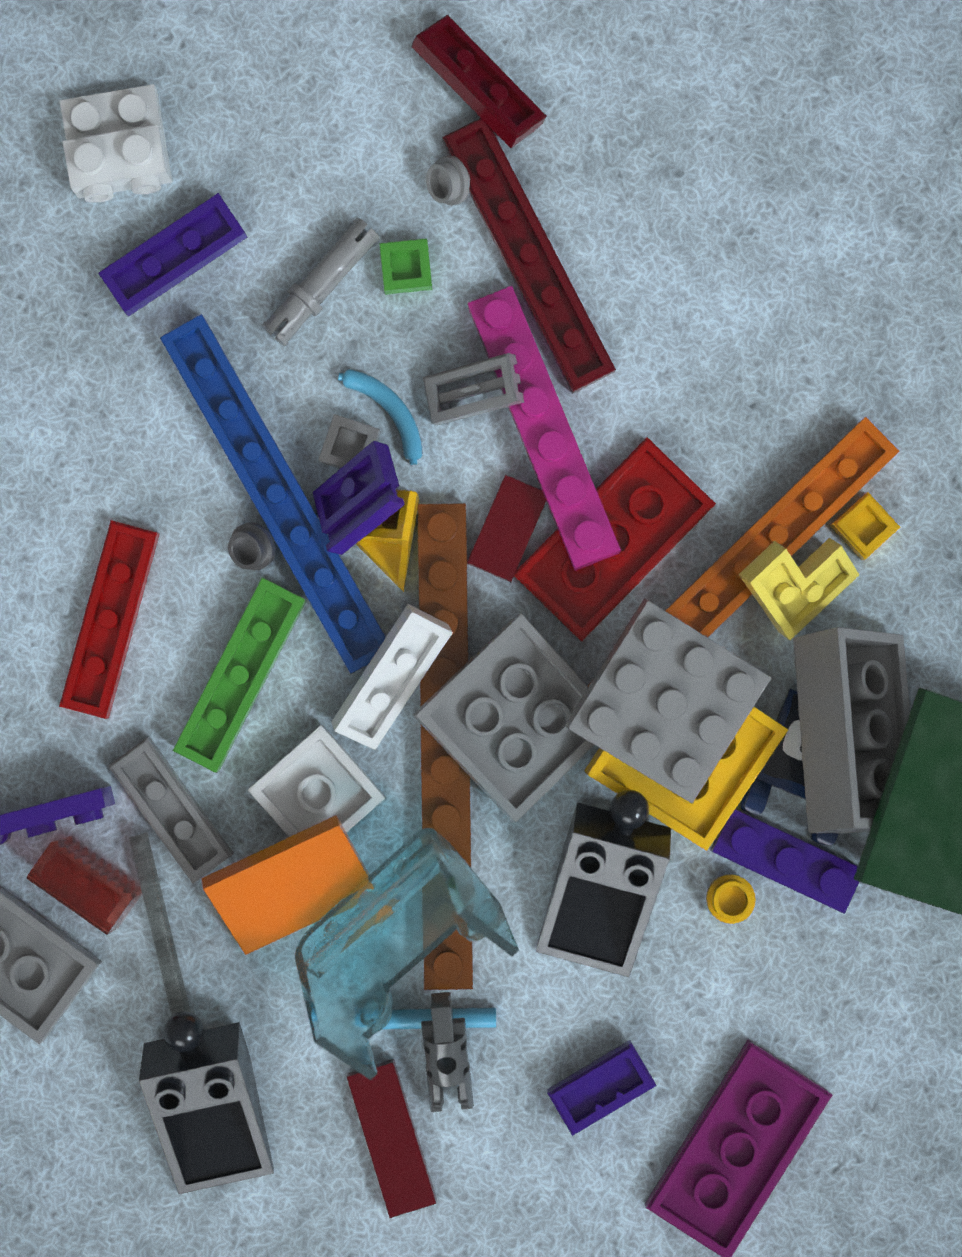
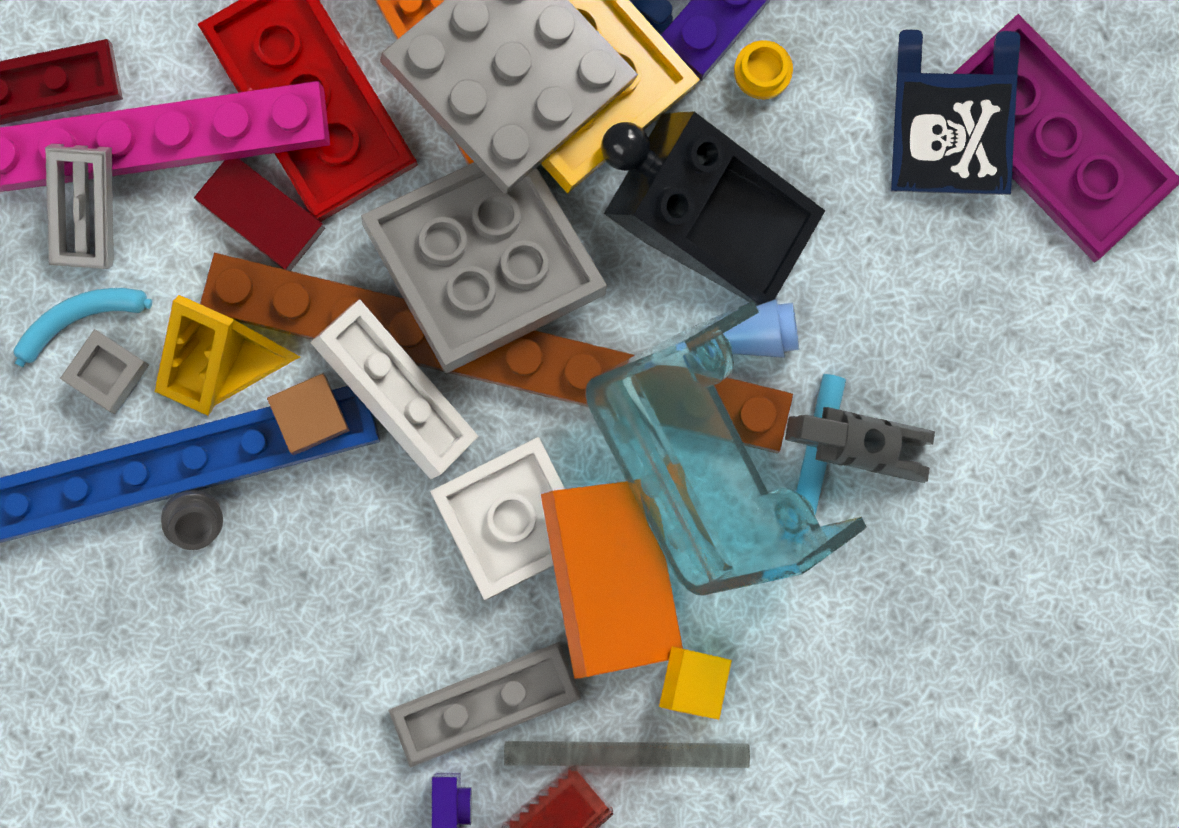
camera: 80 degrees left, 5 degrees down
(109, 619) = (232, 720): red tile -> none
(205, 1104) = (852, 751): black slope -> none
(226, 969) = (695, 683): none -> yellow tile
(239, 675) = (343, 575): bright green plate -> none
(354, 615) = (308, 414): none -> medium nougat tile
(358, 497) = (166, 370): dark purple plate -> none
(392, 1140) = (949, 537): dark red tile -> none
(526, 960) = (767, 332): none -> light blue cone
(601, 1087) = (946, 273): dark purple plate -> none
(722, 1066) = (954, 127): none -> flag

